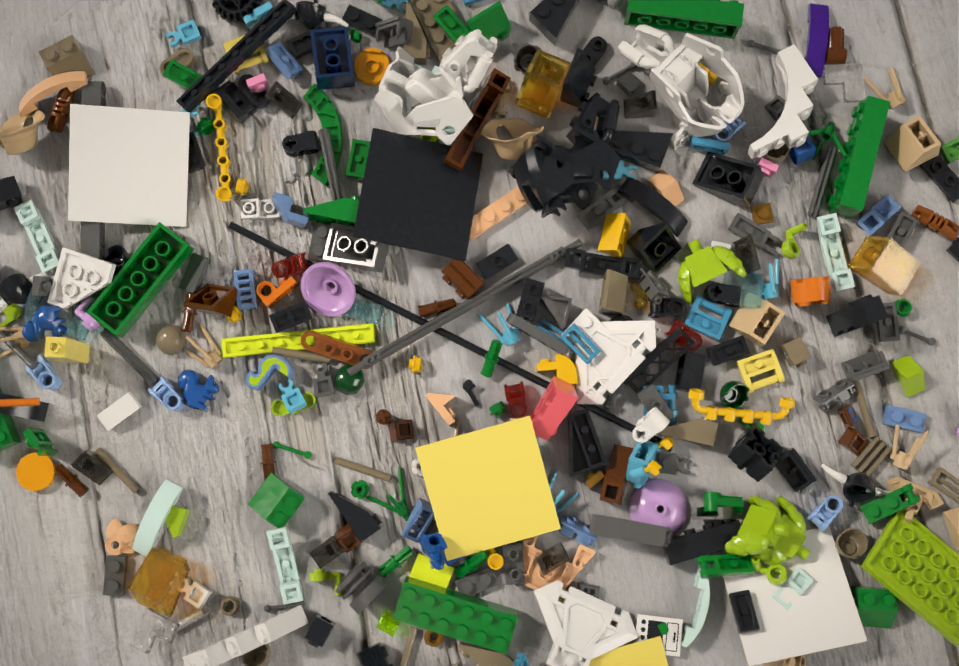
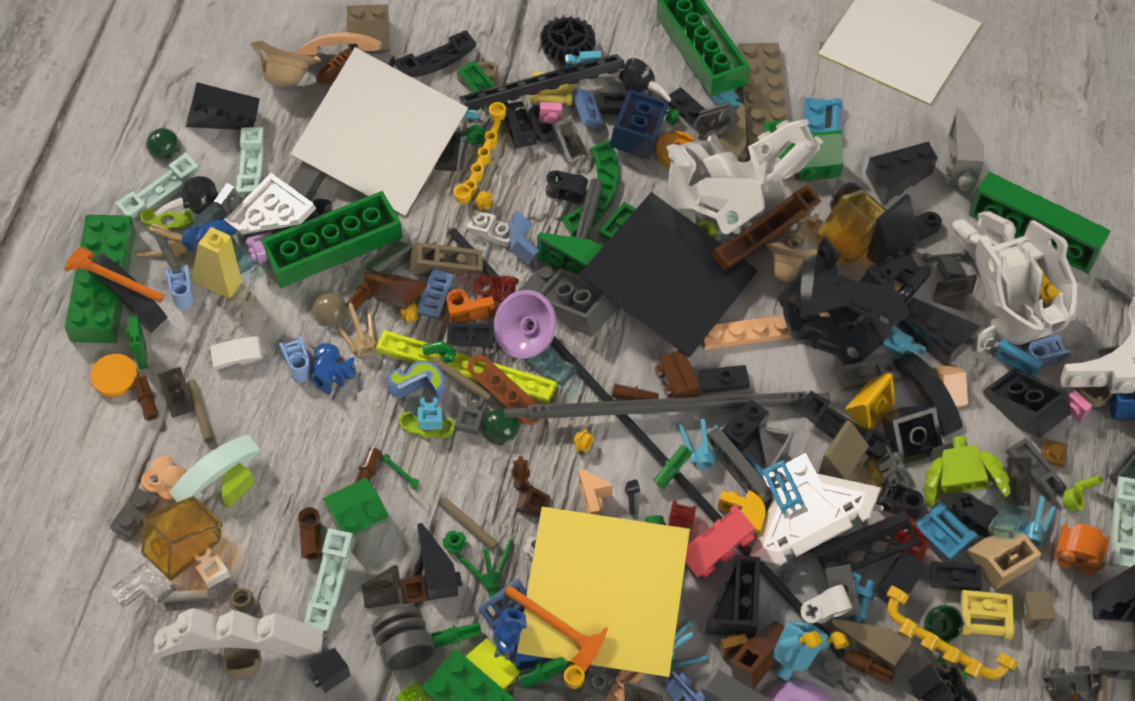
camera: 20 degrees right, 25 degrees down
(129, 356) = (277, 307): dark grey axle -> none
(137, 65) = (438, 58): none -> black slope
(186, 32) = (501, 50): medium azure plate -> none
(239, 257) = (444, 258): none -> dark tan slope
(254, 536) = (310, 534): none -> reddish brown piece
(272, 338) = (441, 348): none -> green arm
(321, 575) = (362, 612): lime plate -> none
(495, 534) = (589, 645): none -> orange piece
(694, 450) = (869, 667): none -> reddish brown axle

